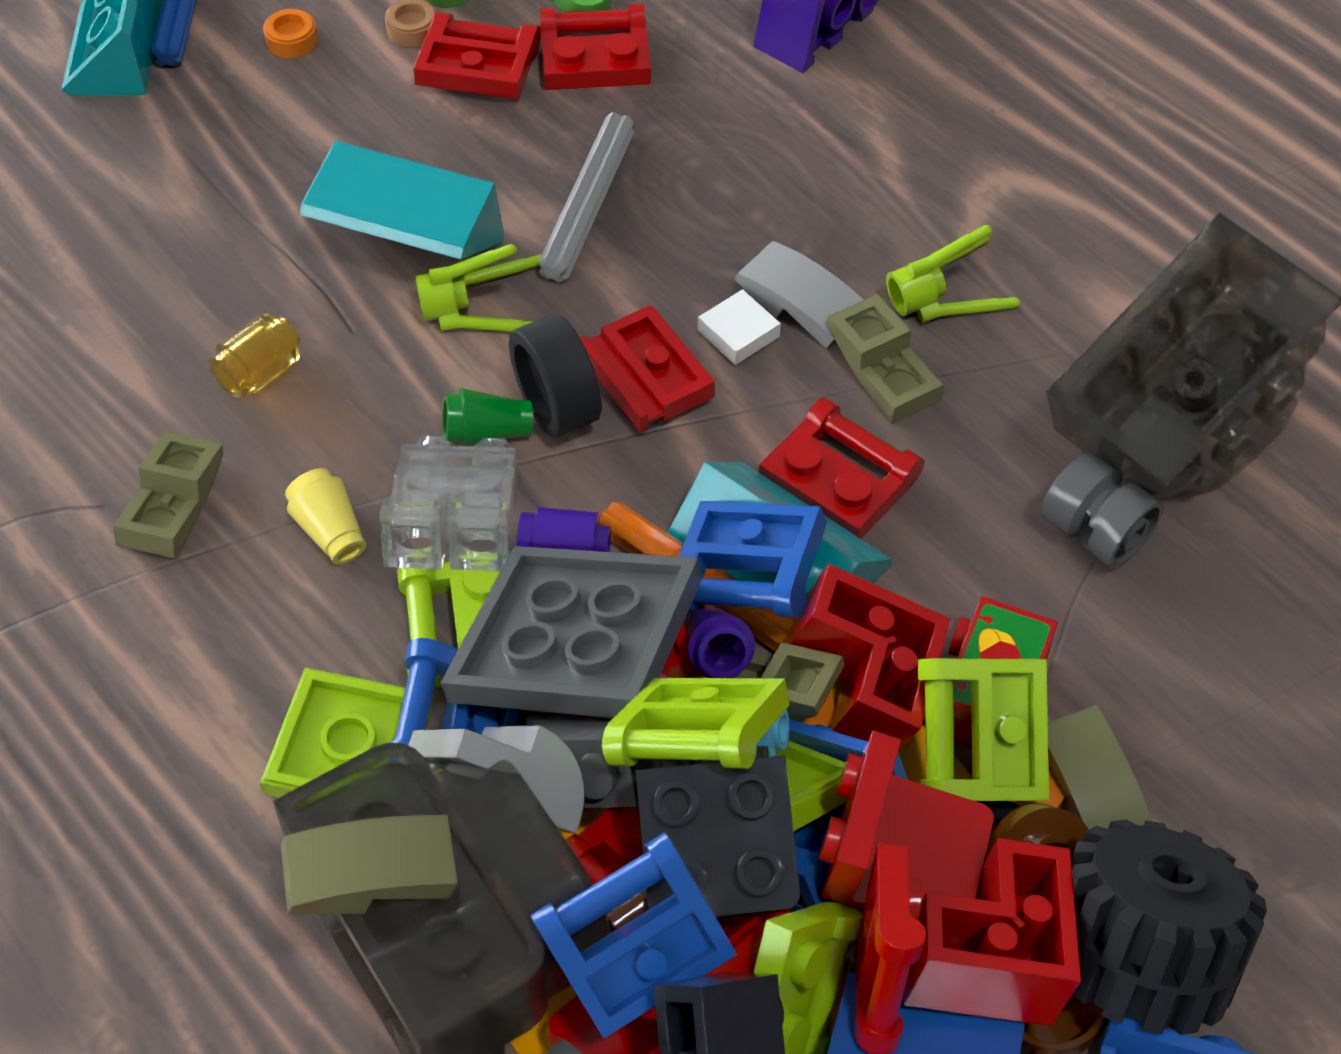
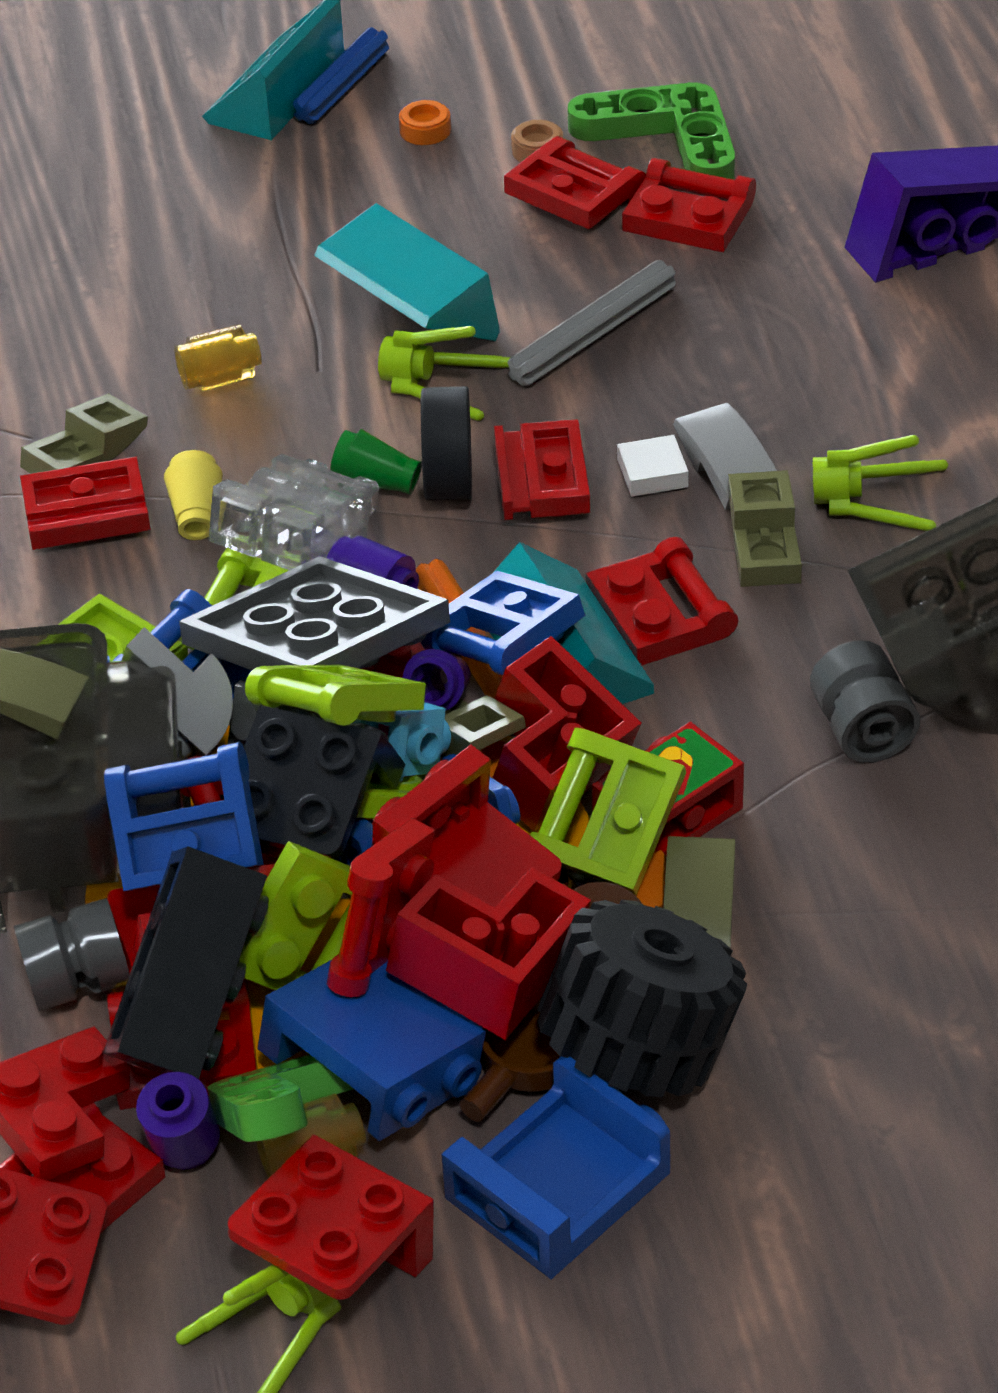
camera: 30 degrees right, 10 degrees down
(218, 566) = (84, 503): none -> red plate

